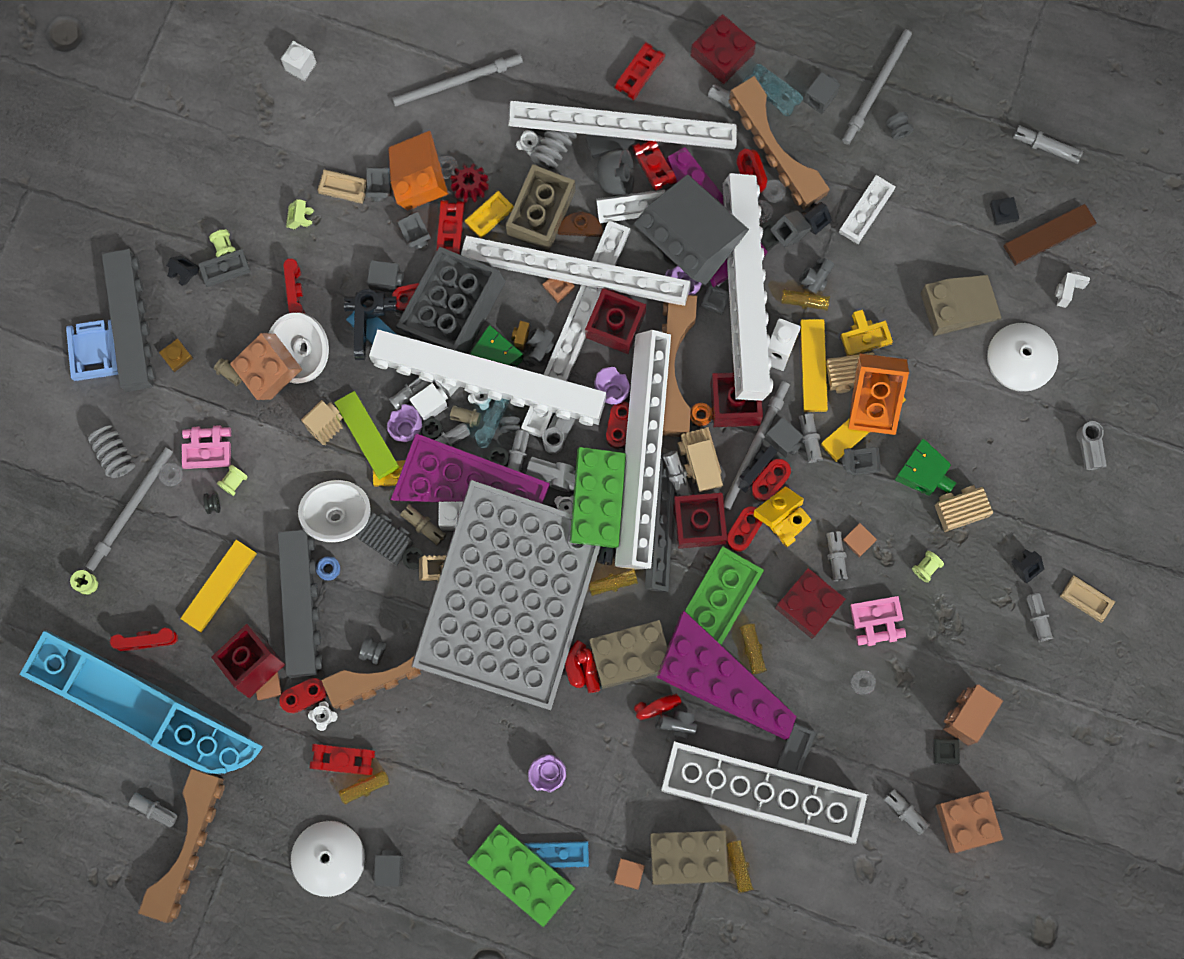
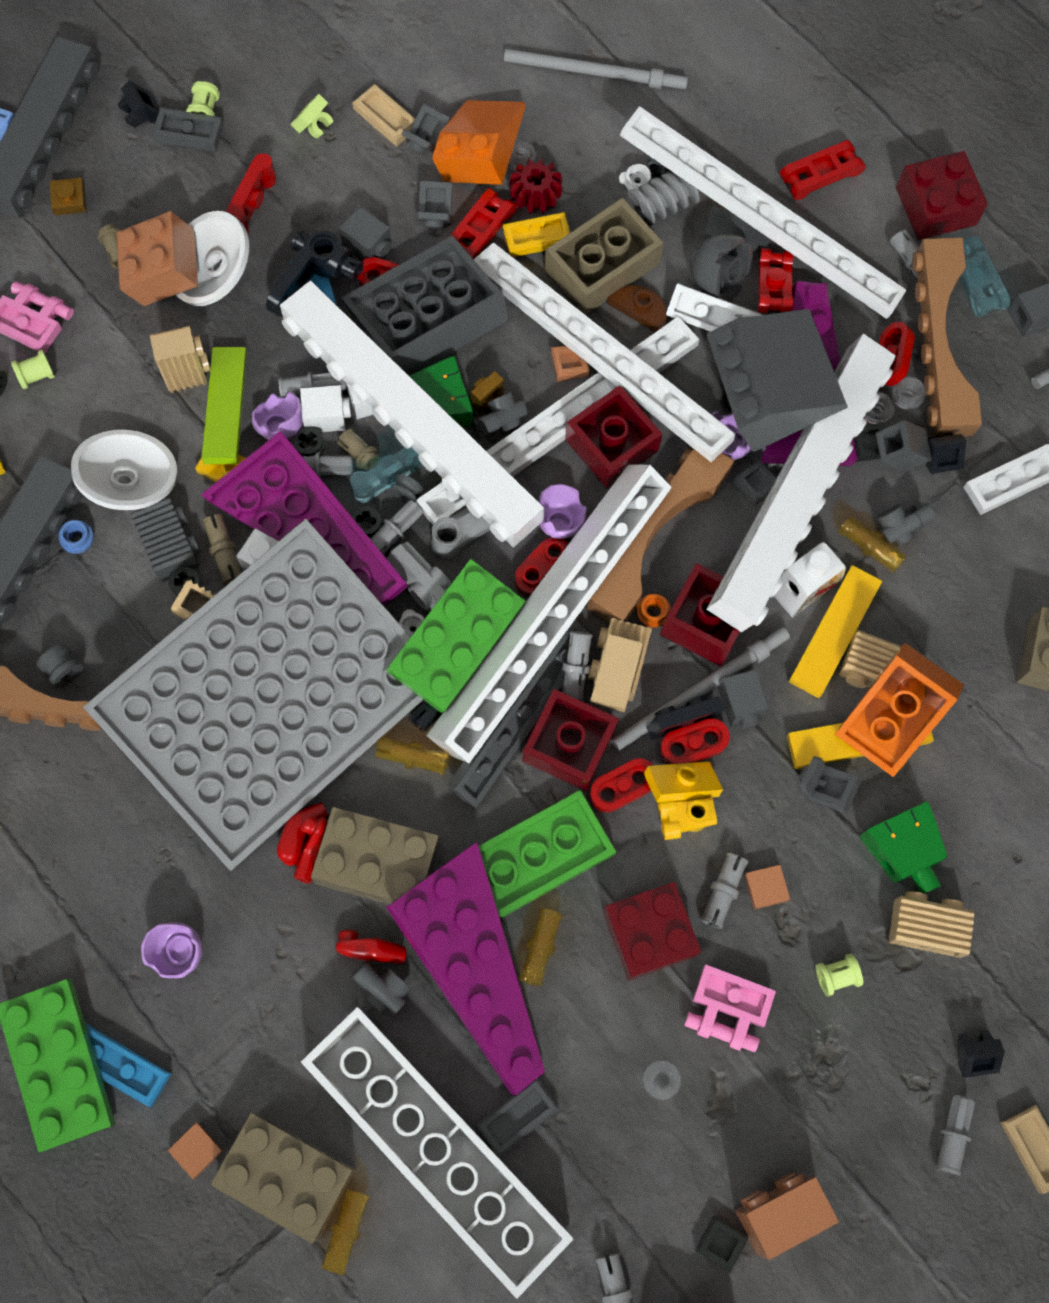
camera: 25 degrees right, 5 degrees down
(482, 402) = (384, 436): white plate -> none
(810, 438) = (778, 719): light grey pin -> none
(865, 335) = (926, 630): yellow hinge -> none

